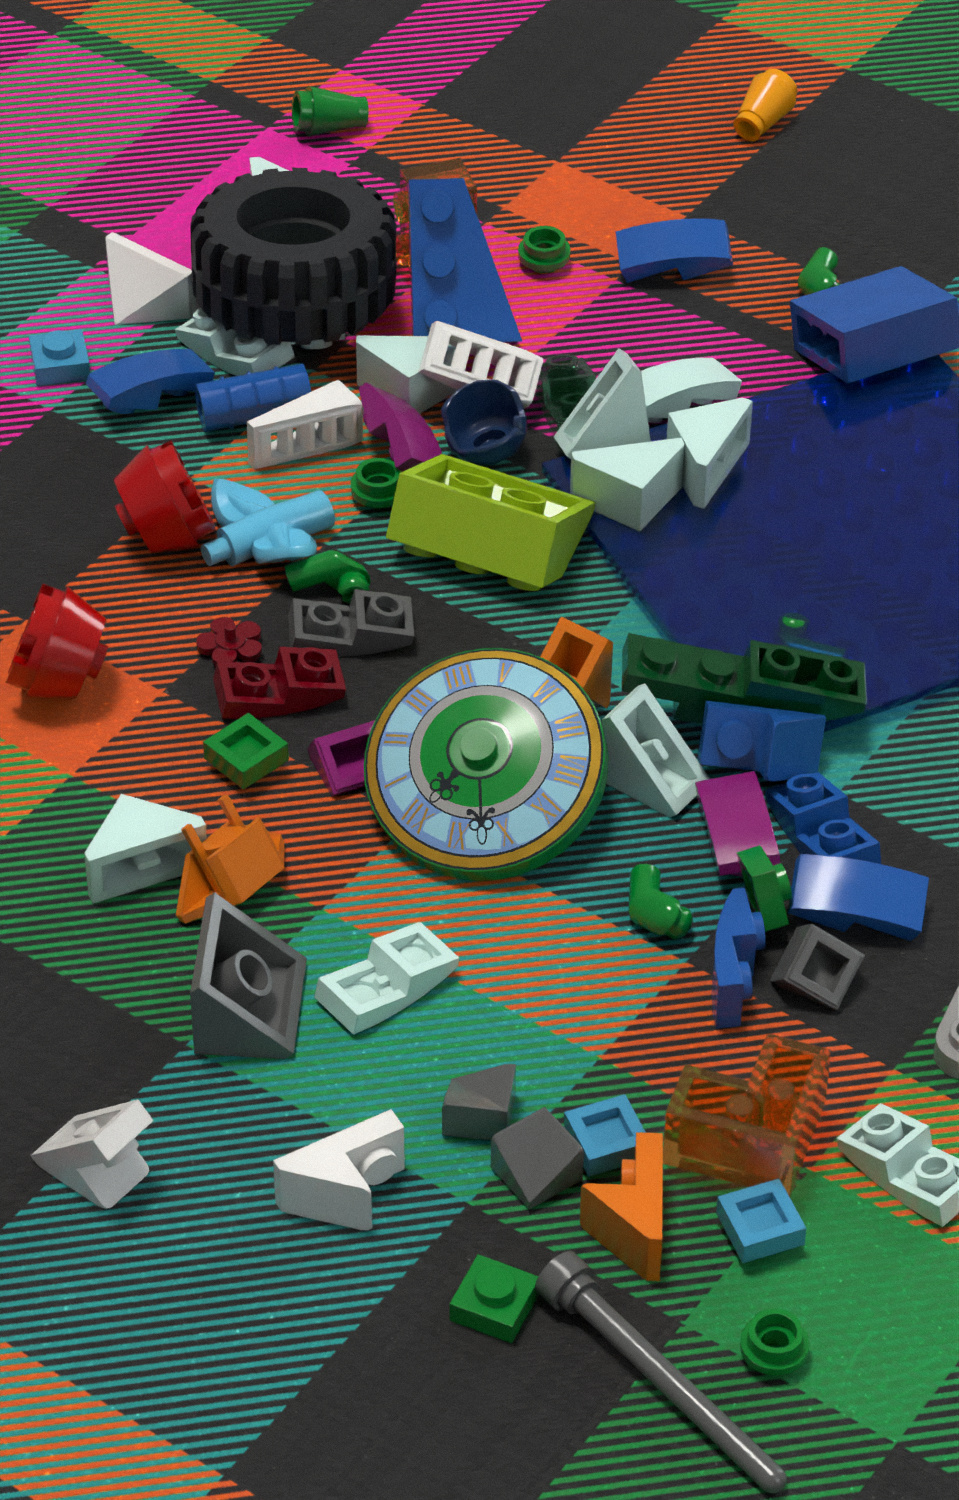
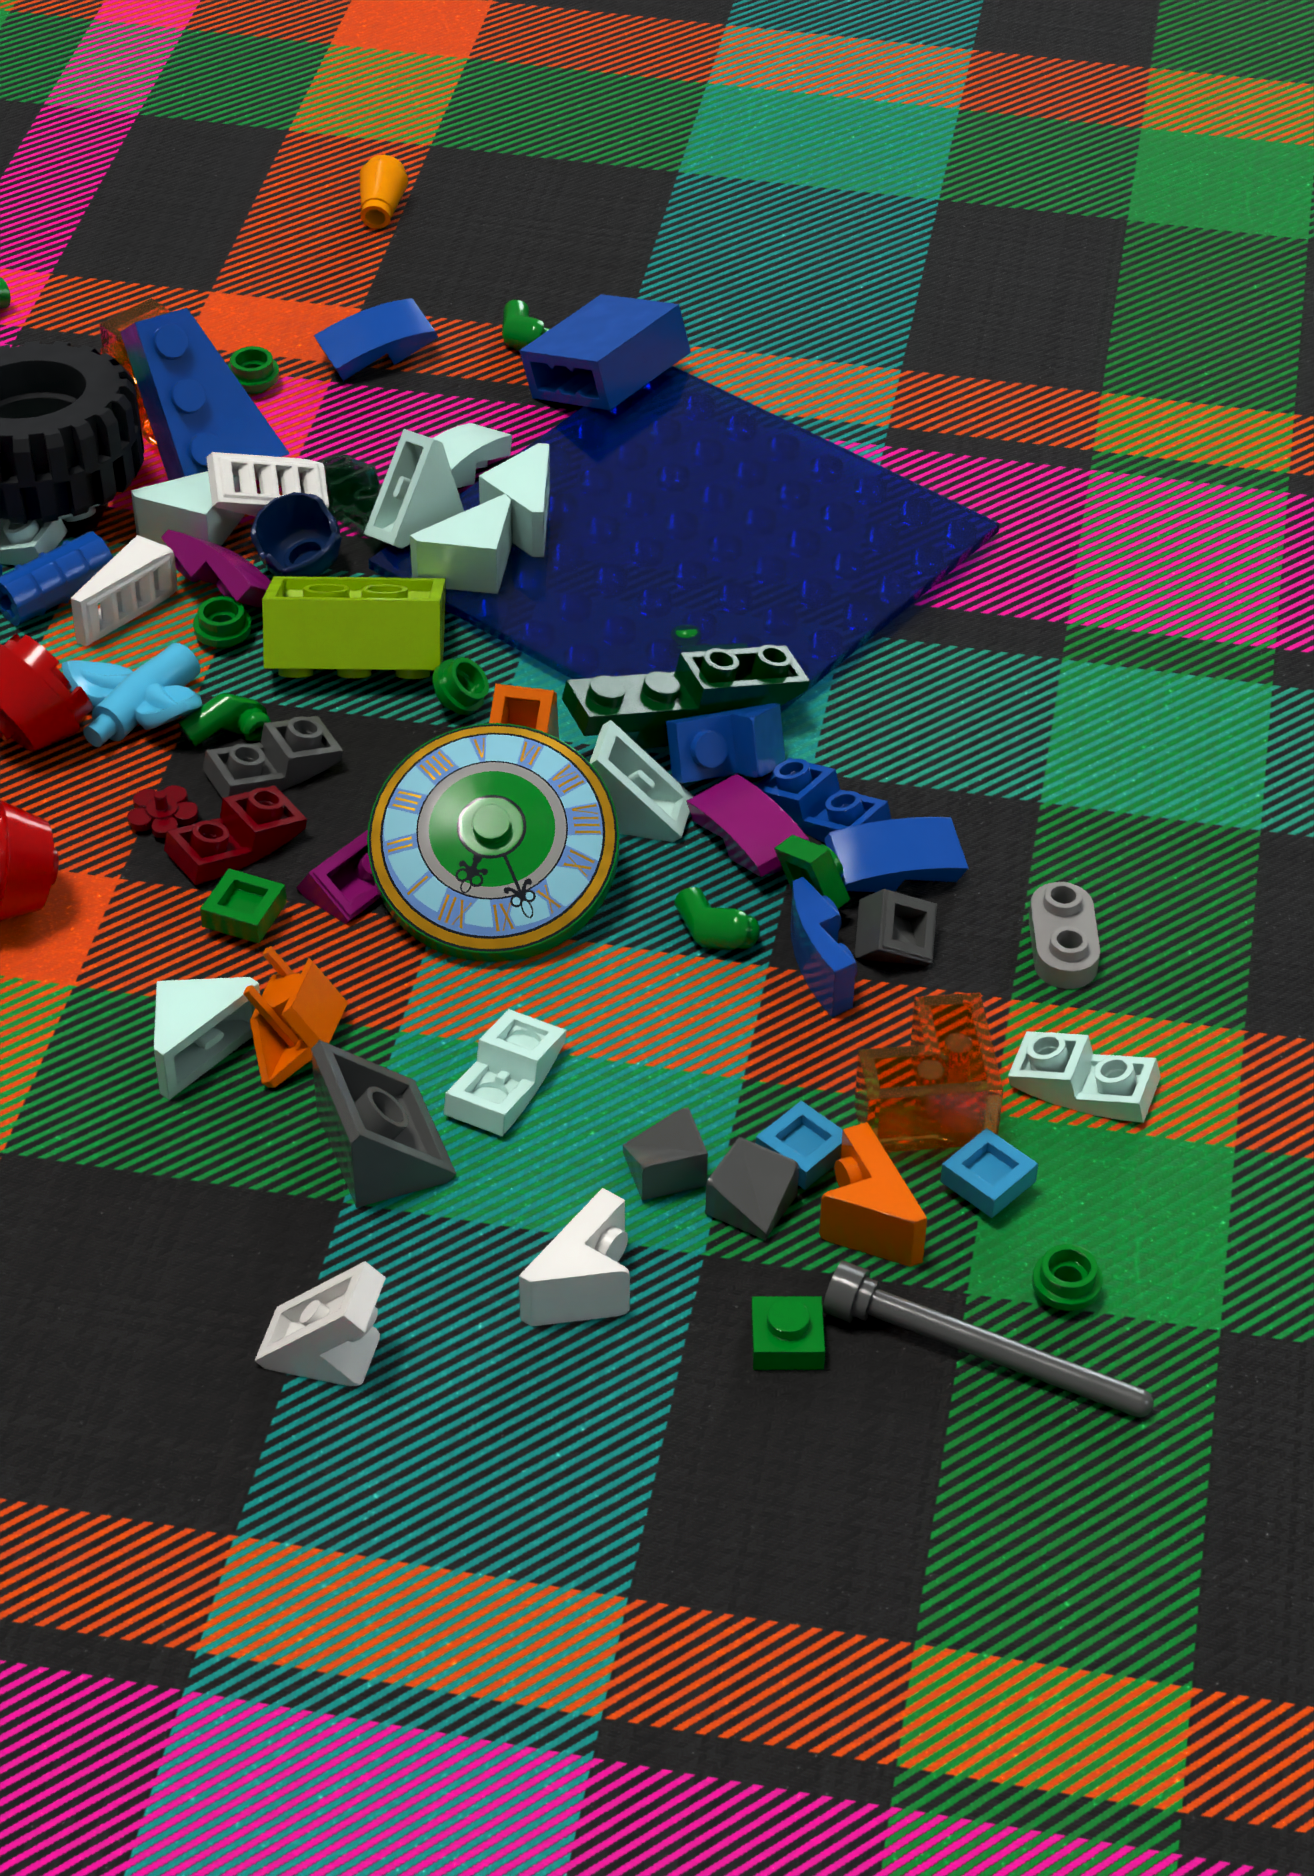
camera: 25 degrees left, 0 degrees up
(560, 598) = (460, 685): none -> green plate

